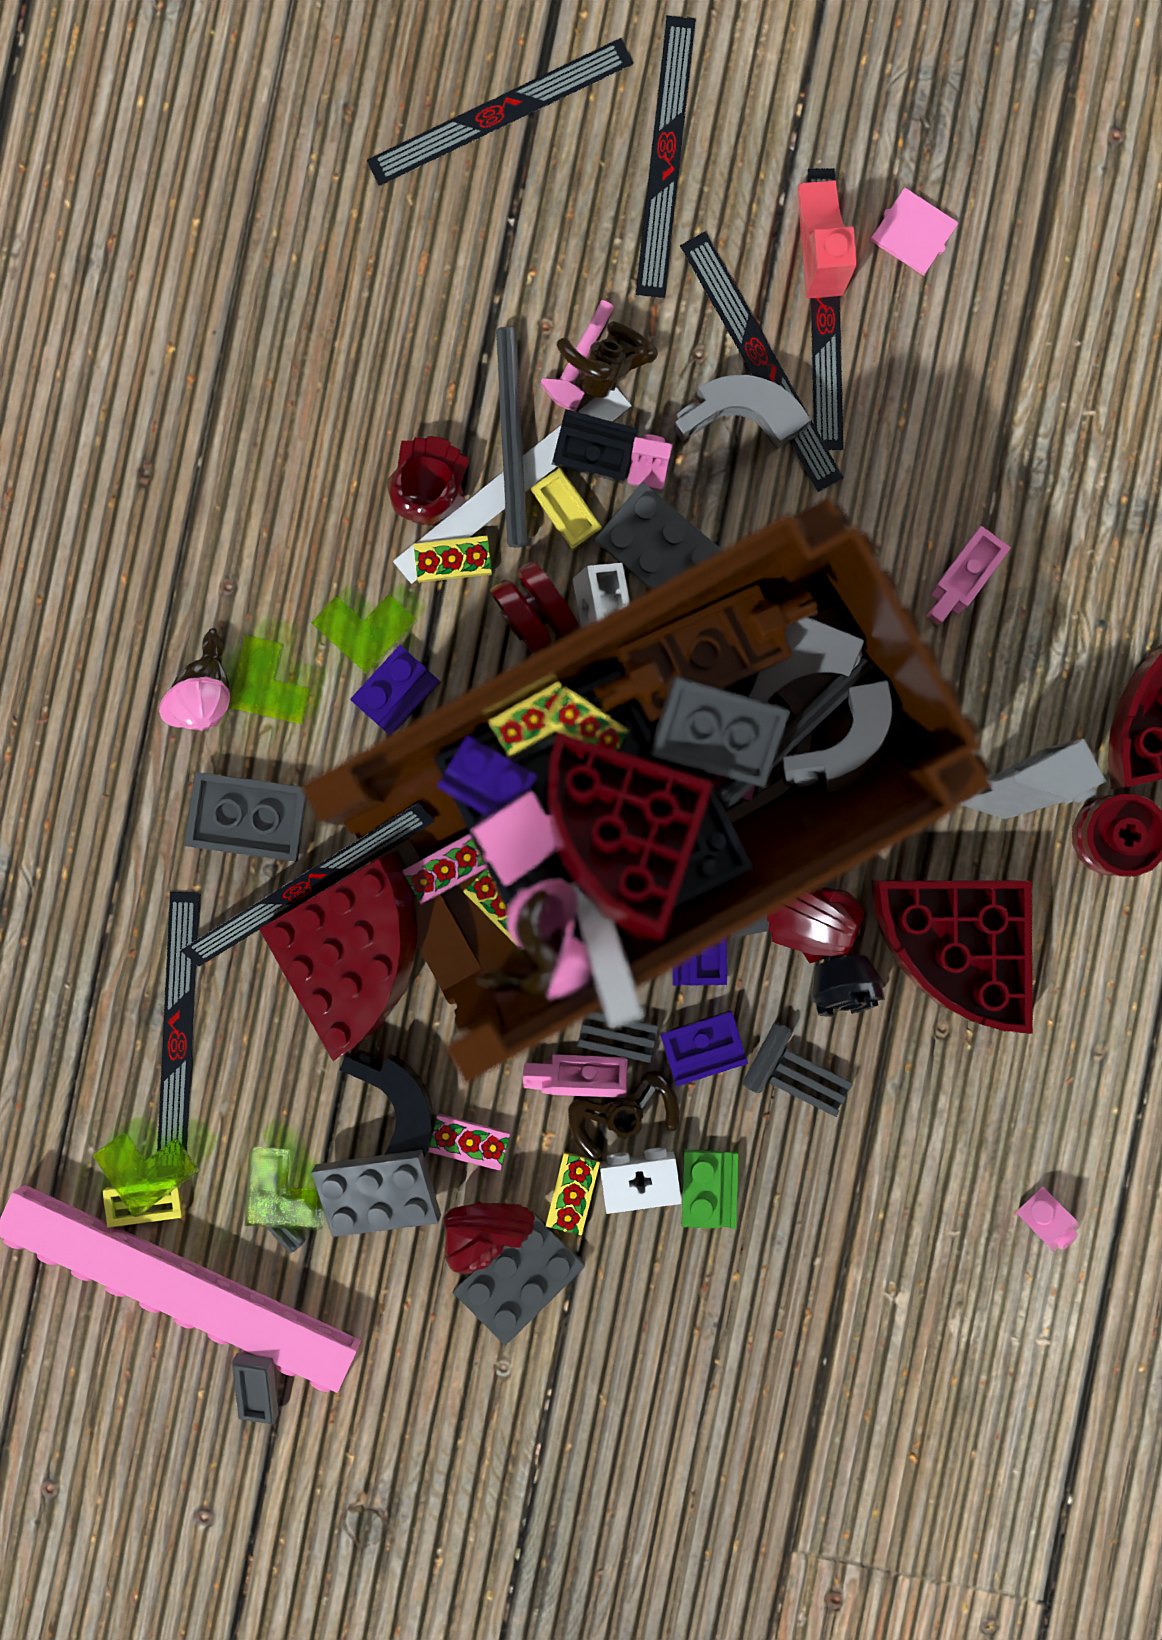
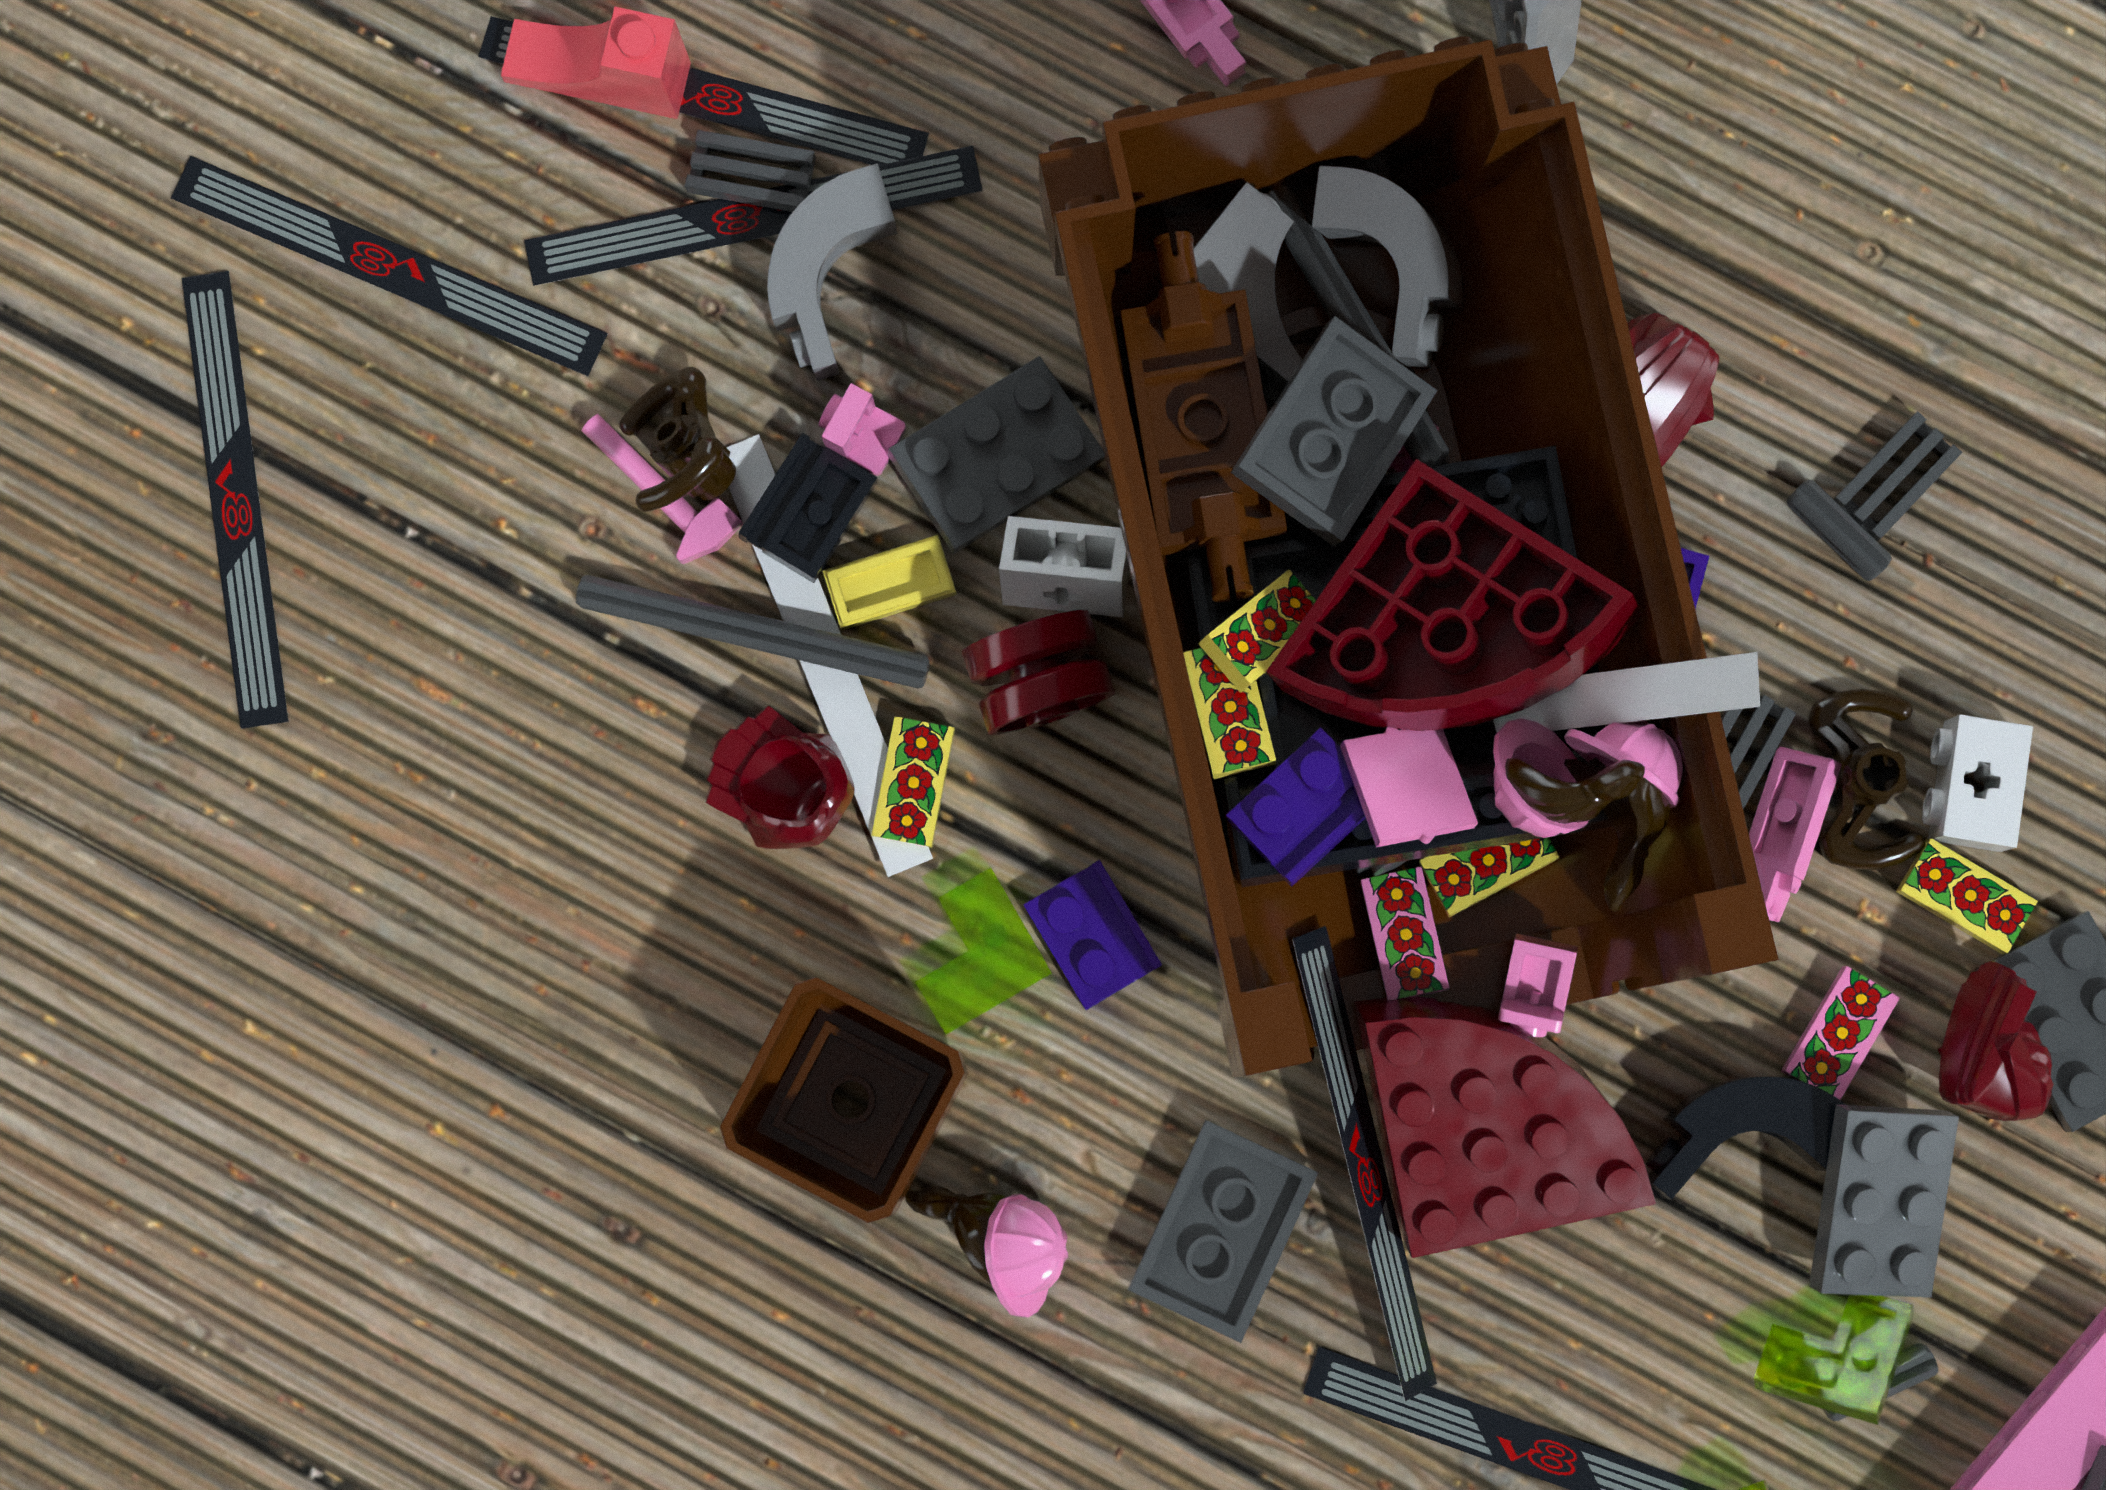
camera: 75 degrees left, 5 degrees down
(222, 551) = (788, 1112): none -> reddish brown plate
(256, 685) = (1024, 1151): clear neon green plate -> none
(436, 955) = (1537, 985): none -> bright pink bracket
(703, 1048) = (1797, 622): dark purple plate -> none
(709, 1189) = (2019, 680): bright green plate -> none
(784, 320) = (755, 150): none -> dark grey tile
(846, 985) = (1763, 372): black cone -> none
(964, 945) = (1752, 176): dark red brick -> none

